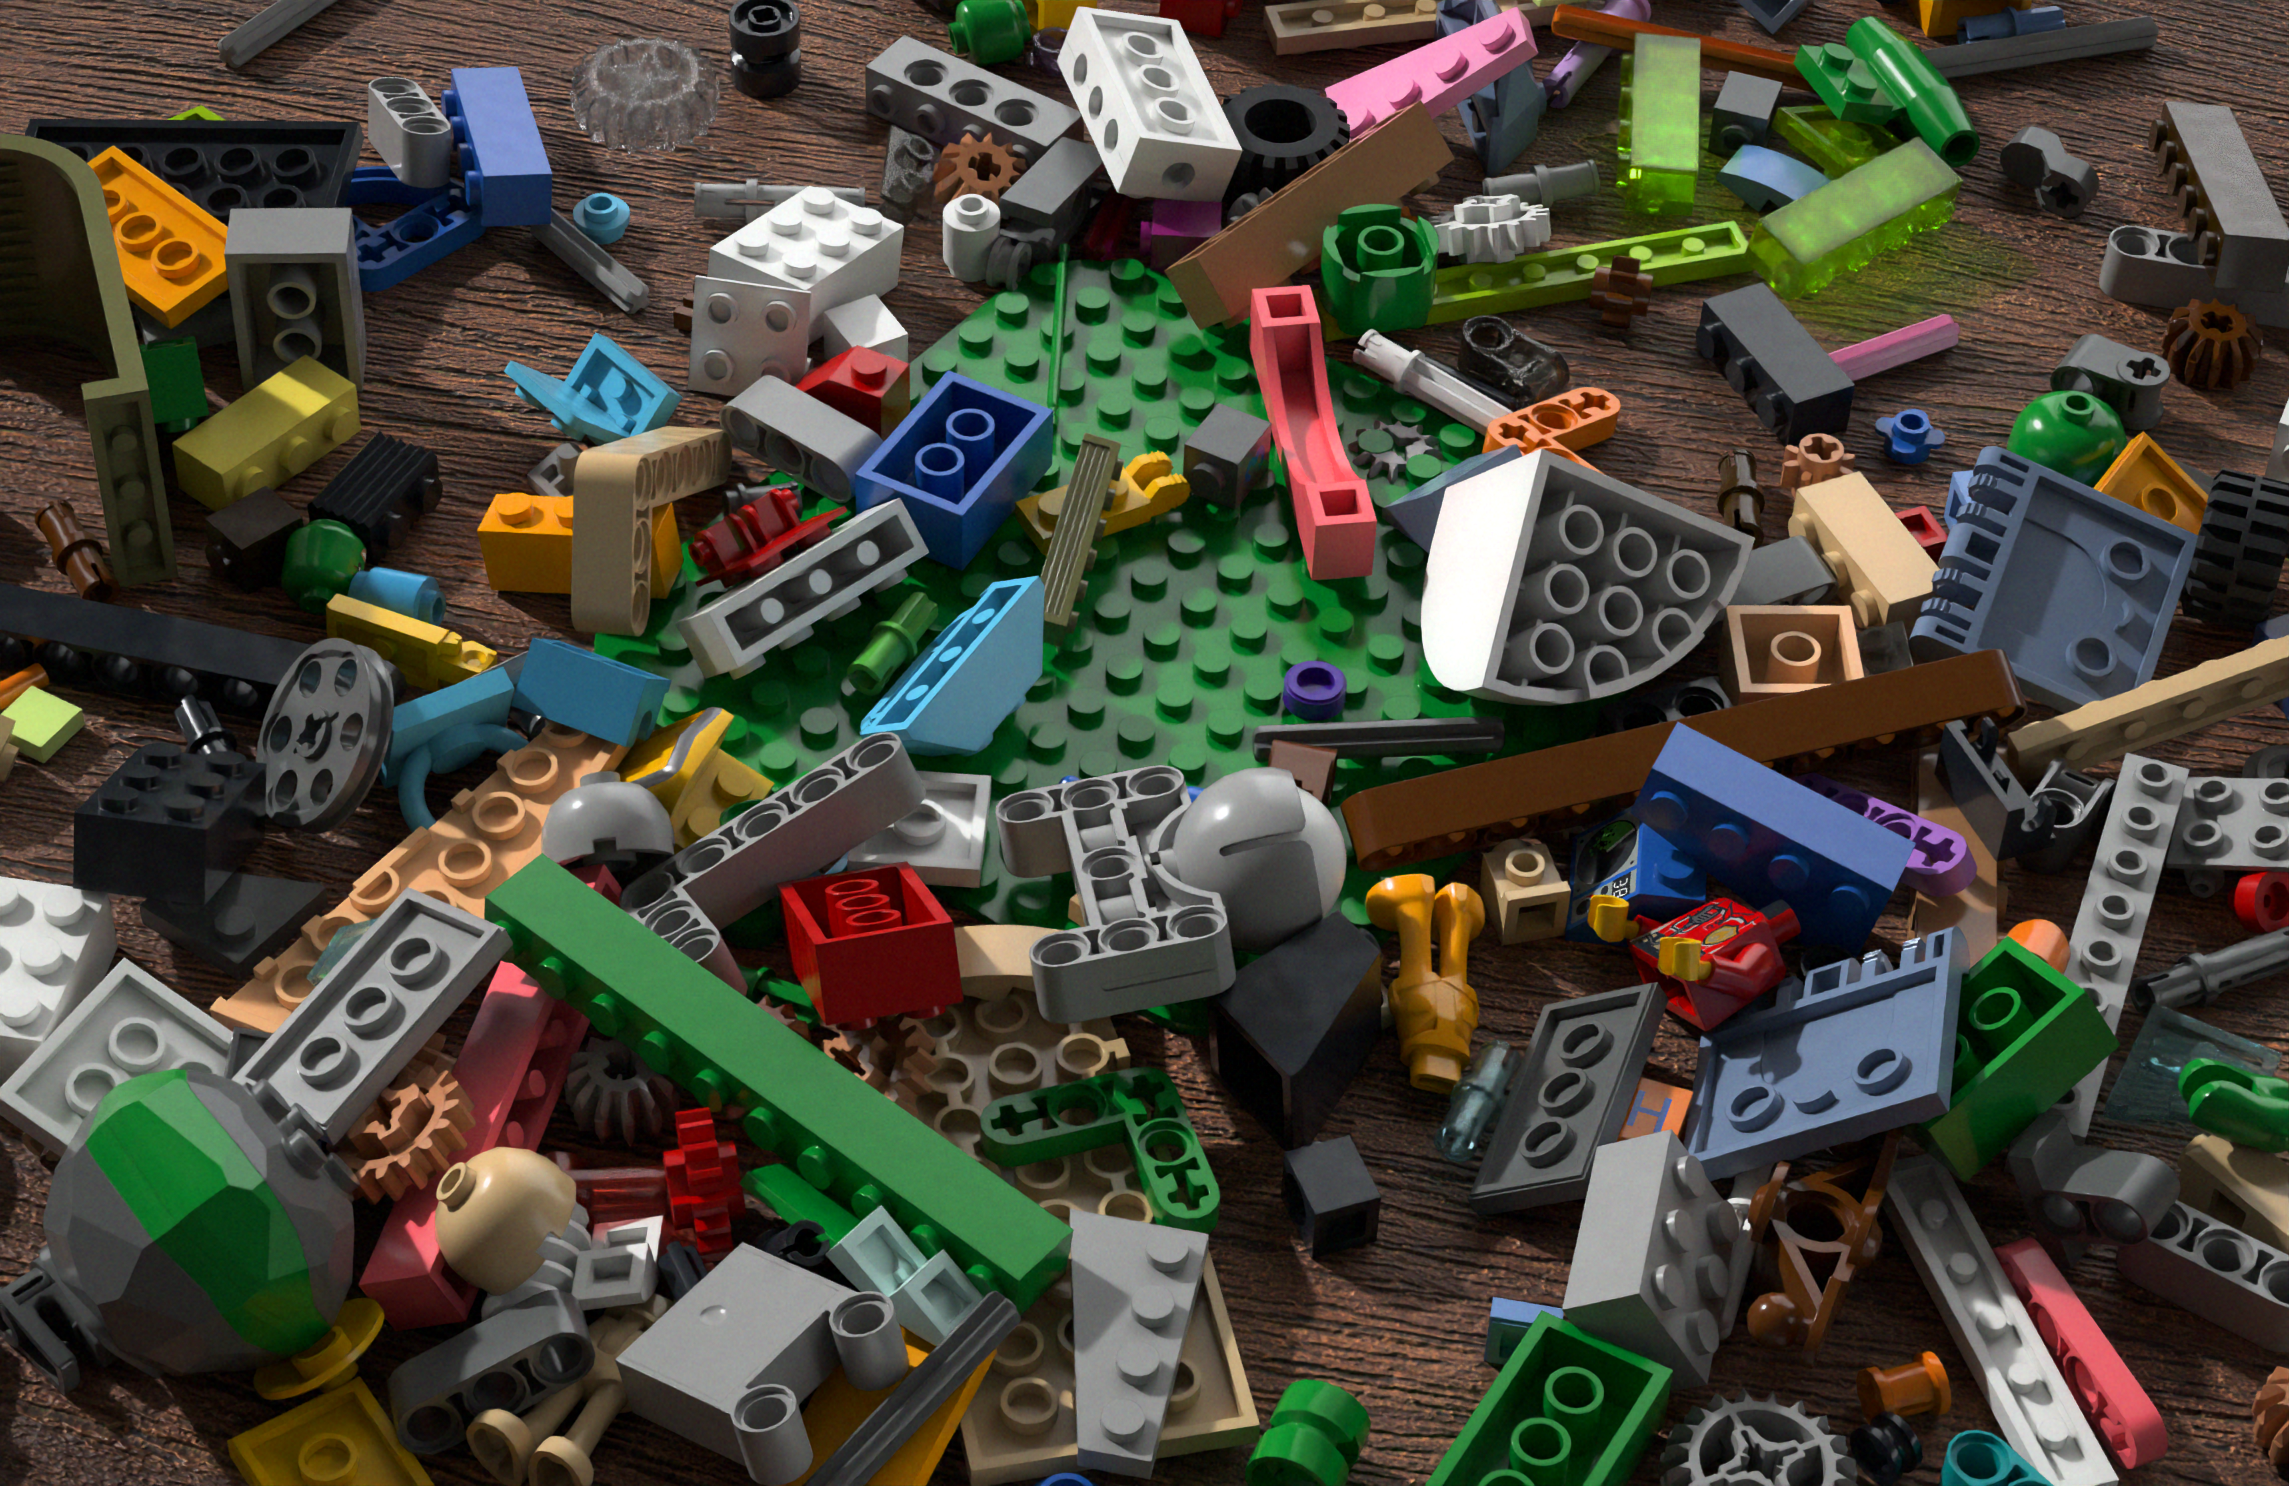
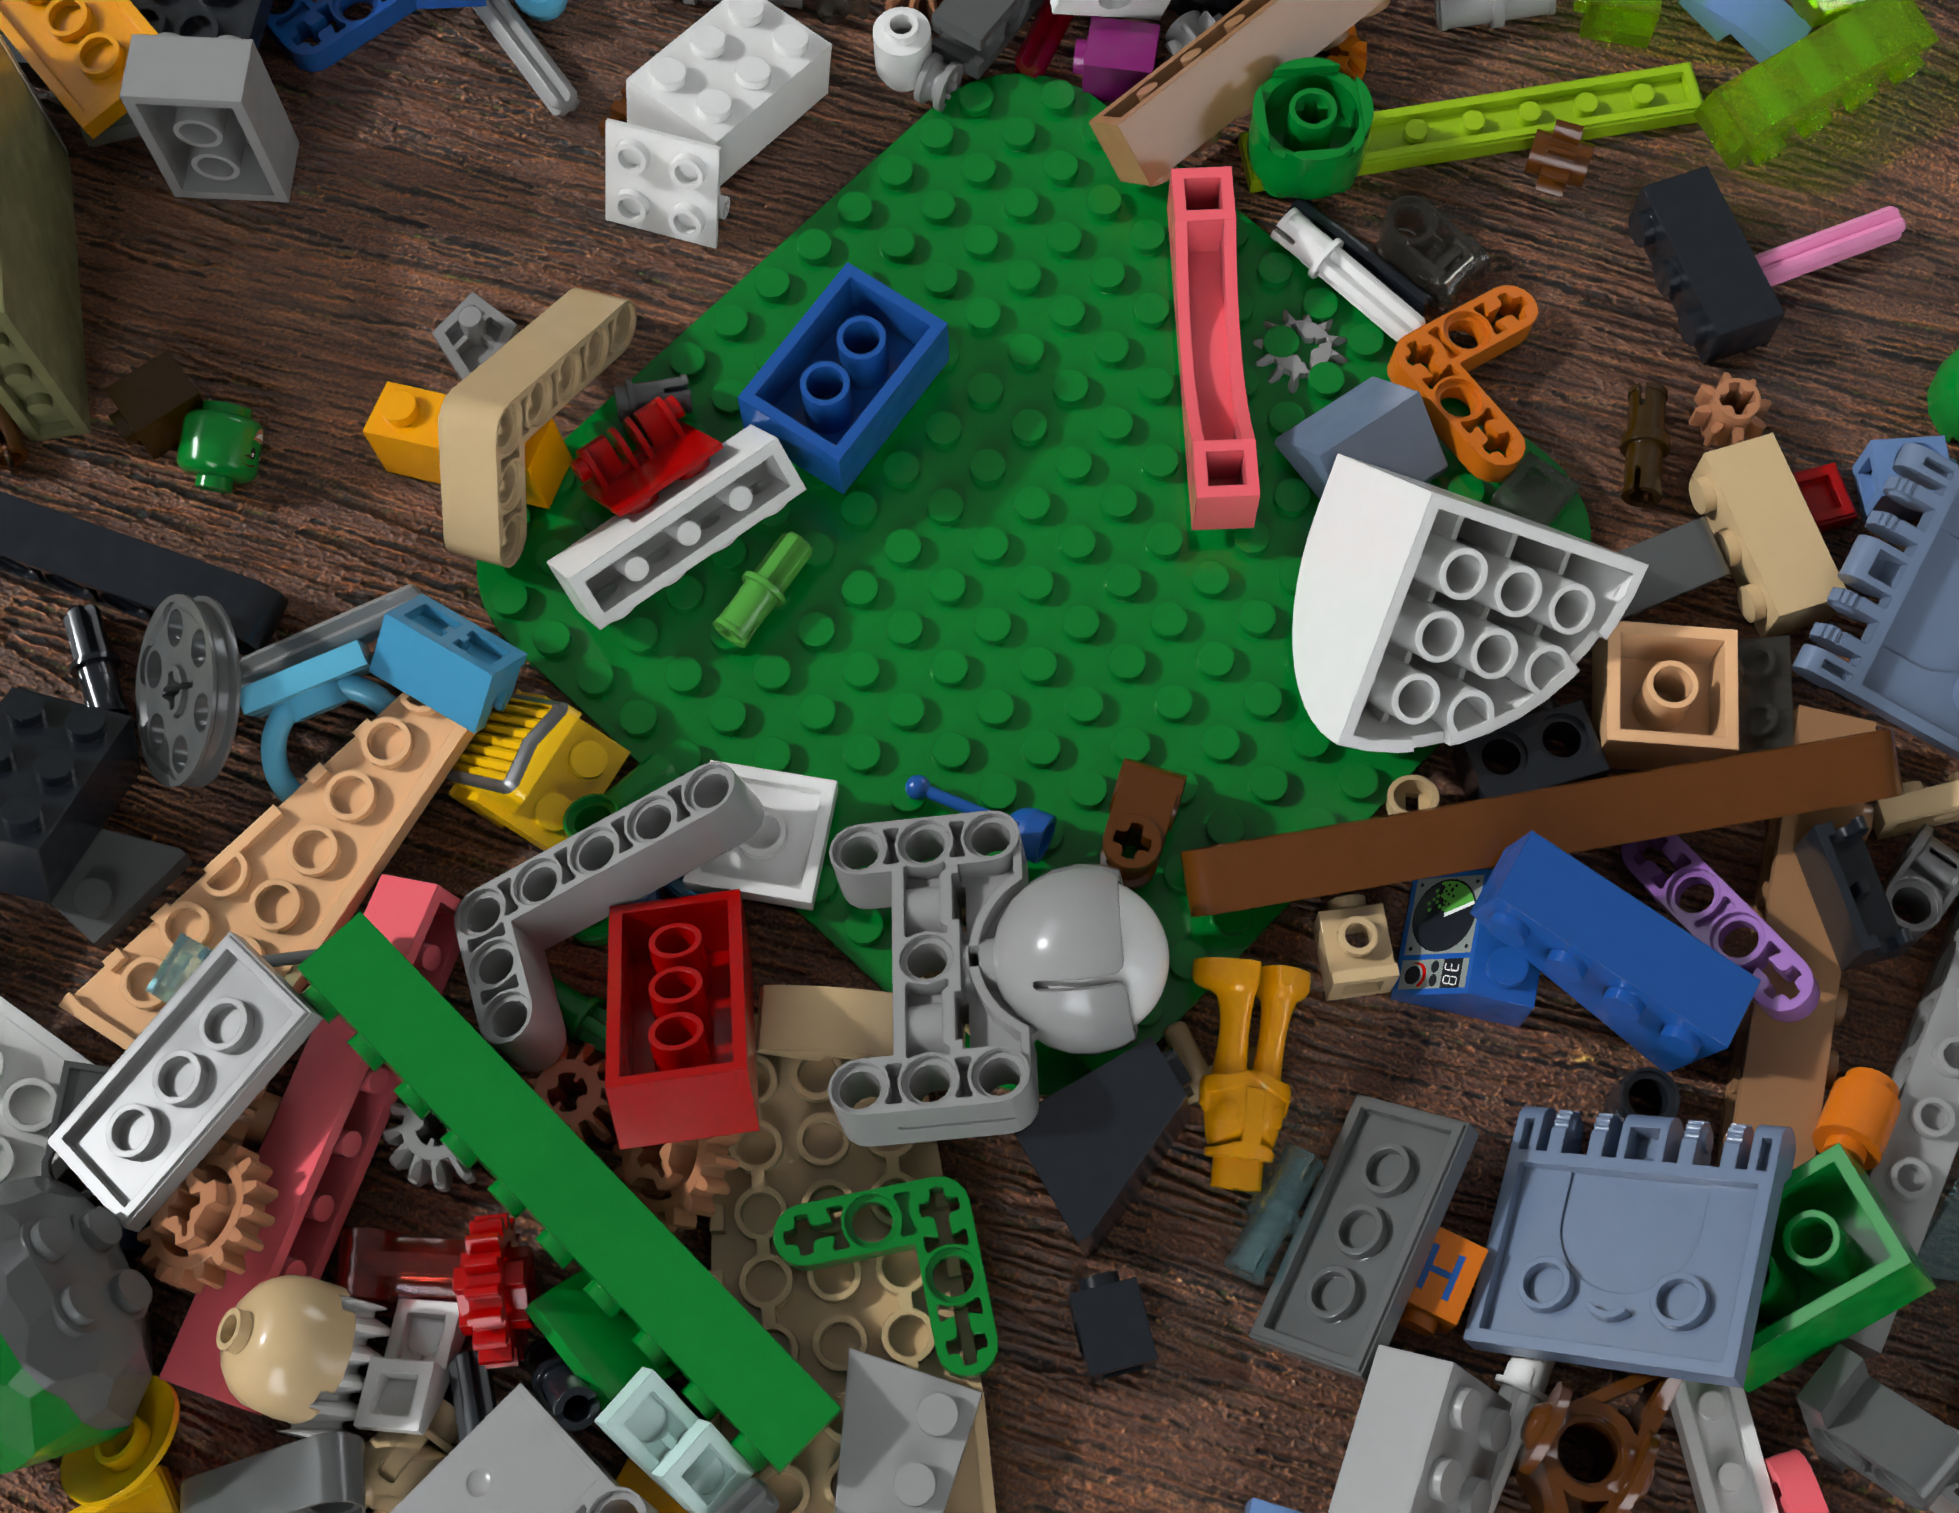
camera: 10 degrees right, 25 degrees up
(175, 383) = (86, 210): green brick -> none
(267, 434) = (183, 270): light yellow brick -> none
(381, 493) = (281, 359): black brick -> none
(400, 592) = (288, 492): dark azure brick -> none
(420, 650) = (293, 556): yellow hinge -> none
(603, 396) = (507, 253): medium azure bracket -> none
(608, 825) = (447, 835): light grey cylinder -> none
(799, 436) = (701, 315): light grey beam -> none
(863, 387) = (756, 265): red slope -> none
(864, 324) = (782, 184): white brick -> none
(968, 675) = (817, 658): medium azure wedge -> none
(1058, 331) = (975, 185): green piece -> none
(1075, 532) = (952, 480): olive piece -> none
(1141, 493) = (991, 416): yellow hinge -> none
(1227, 455) = (1123, 368): dark grey brick -> none
(1314, 690) = (1177, 675): dark purple tile -> none
(1389, 737) = (1229, 749): dark grey axle -> none
(1491, 228) = (1432, 68): white gear -> none
(1705, 959) = (1523, 1073): red torso -> none
(1909, 436) = (1826, 377): blue plate -> none

